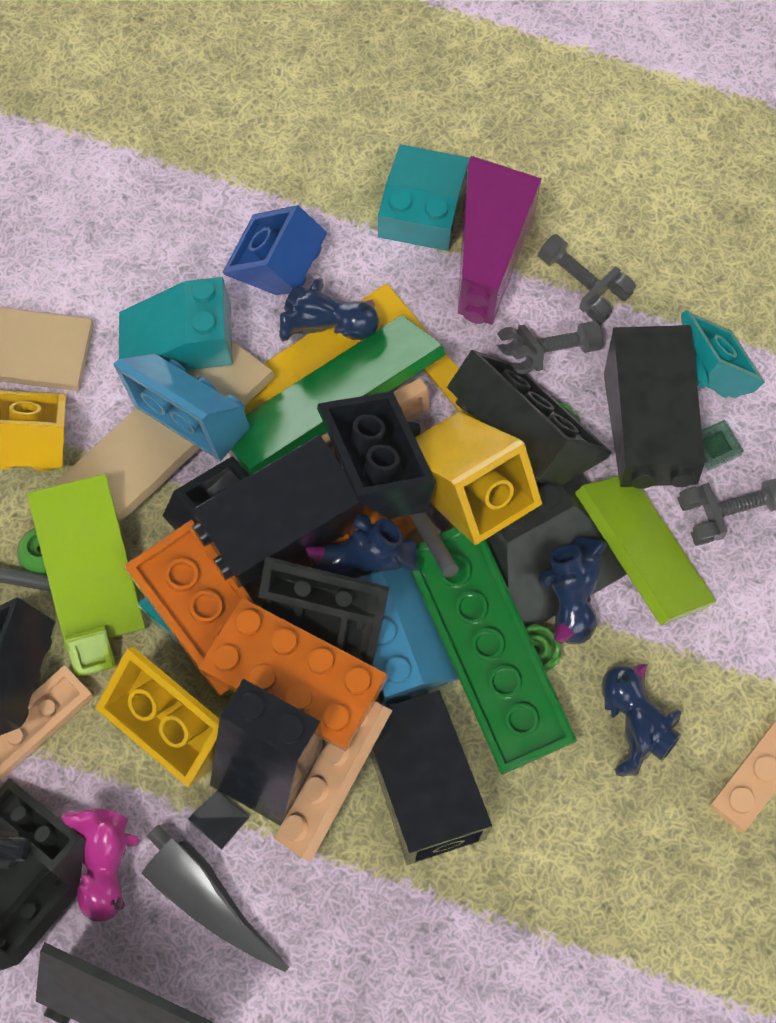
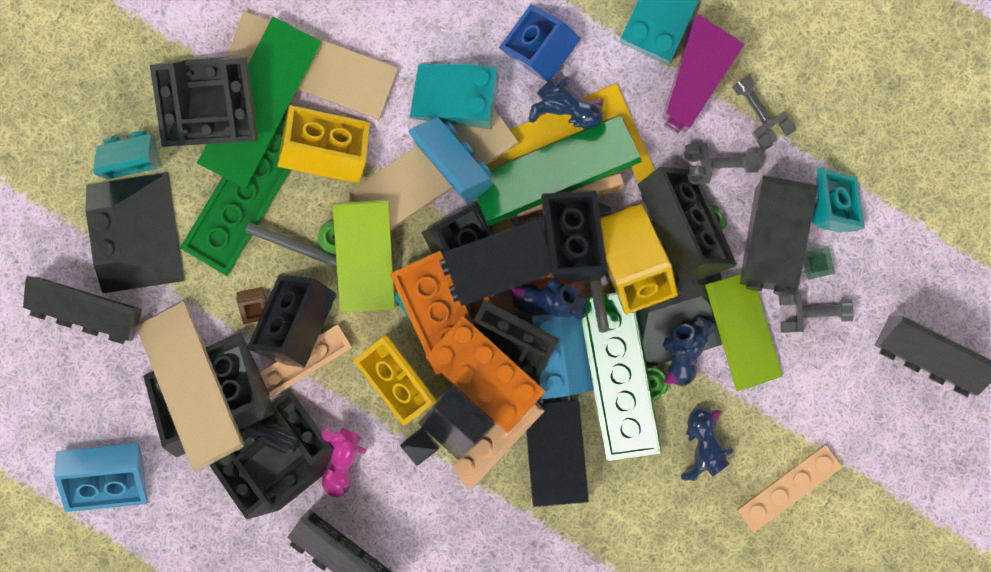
camera: 20 degrees right, 20 degrees up
(90, 651) = (356, 317): lime tile -> none
(194, 887) = (395, 486): dark grey piece -> none

